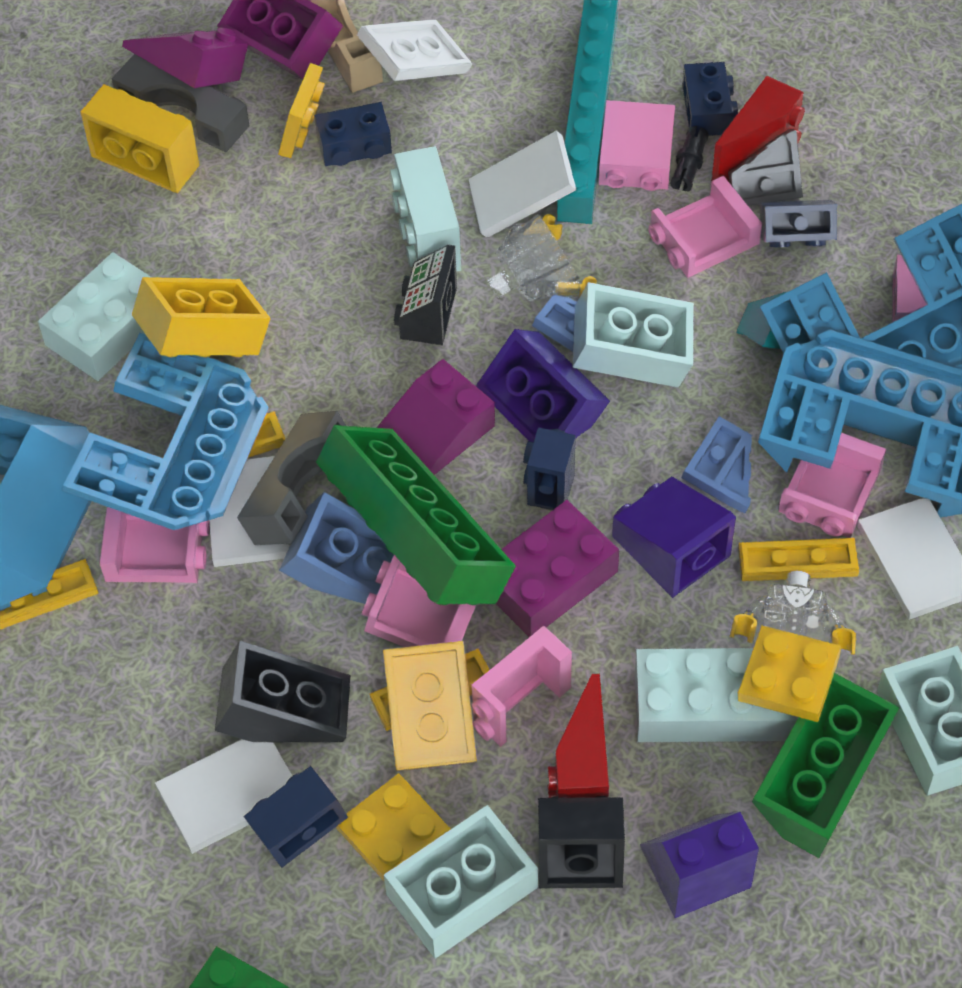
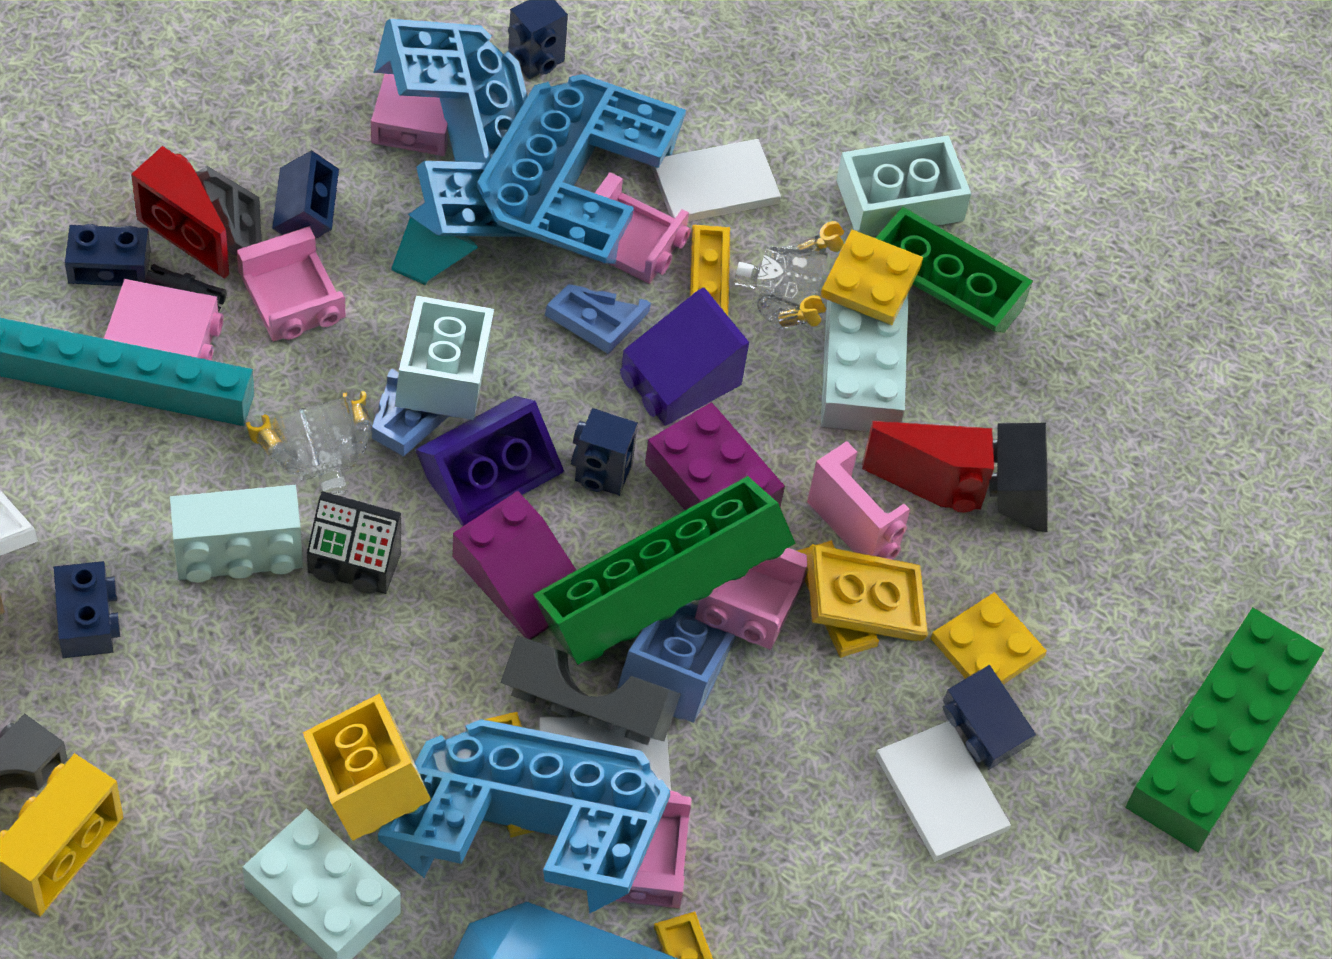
camera: 95 degrees left, 0 degrees up
(281, 698) = (851, 729): black slope -> none
(302, 111) = (50, 653): yellow plate -> none
(461, 881) = (1058, 581): light aqua brick -> none
(522, 184) = (209, 434): white tile -> none
(703, 861) = (1040, 378): dark purple slope -> none

